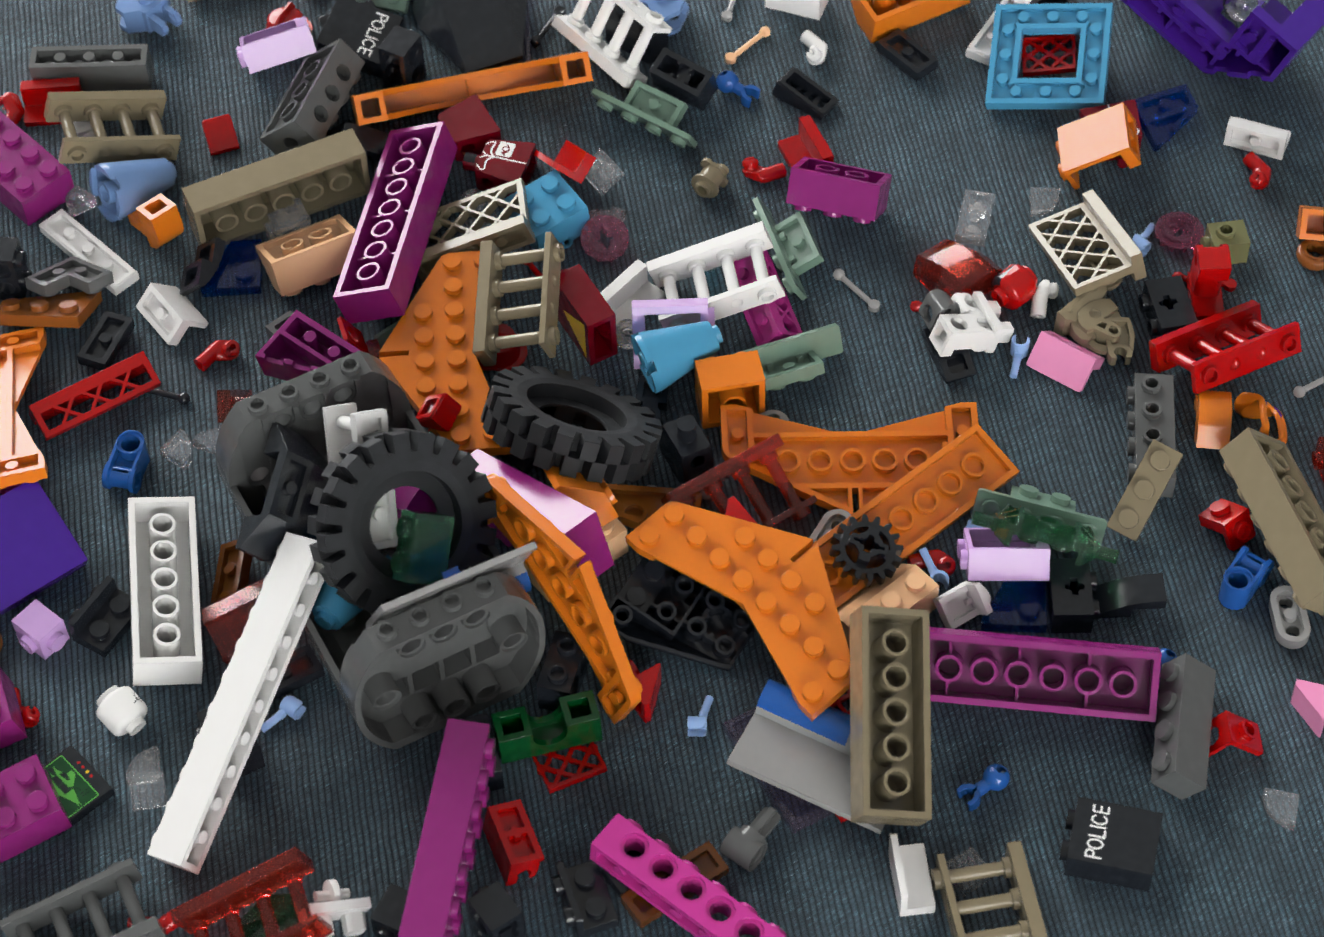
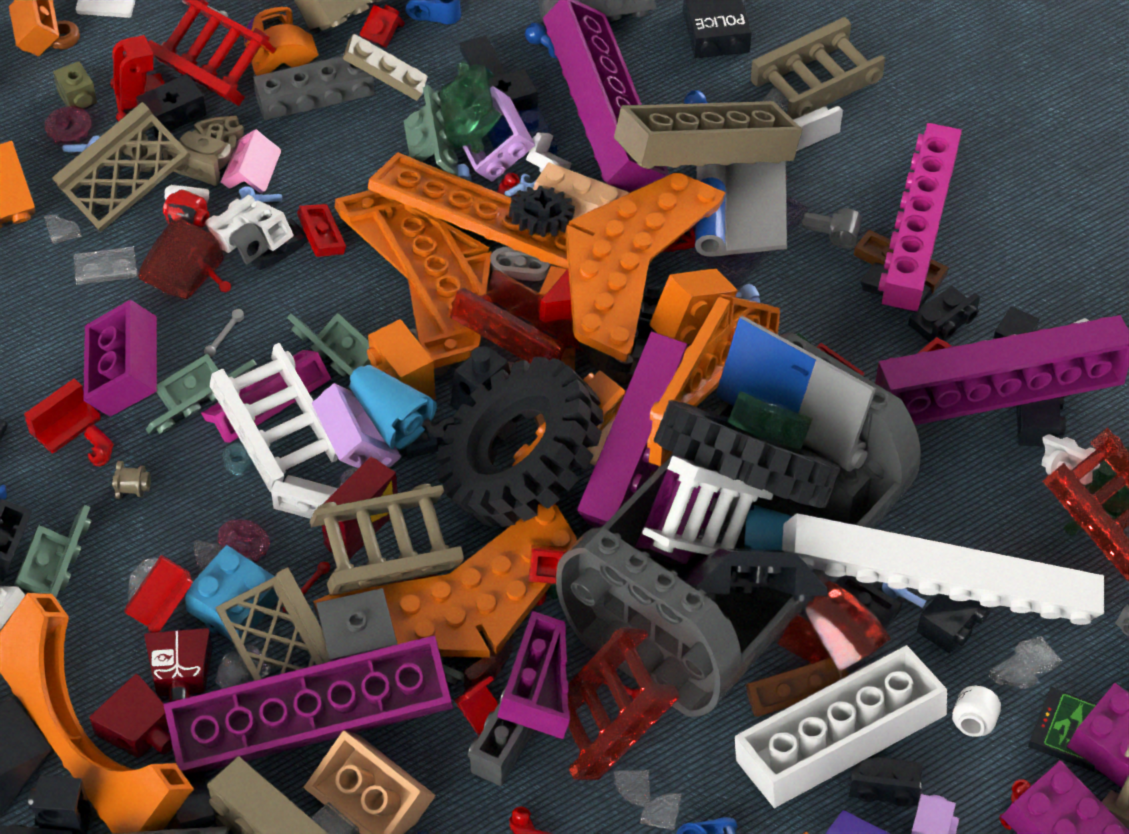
camera: 115 degrees left, 0 degrees up
(445, 261) = (356, 624): none -> dark grey plate
(665, 624) = (688, 302): none -> orange brick
(946, 387) = (321, 230): none -> red plate

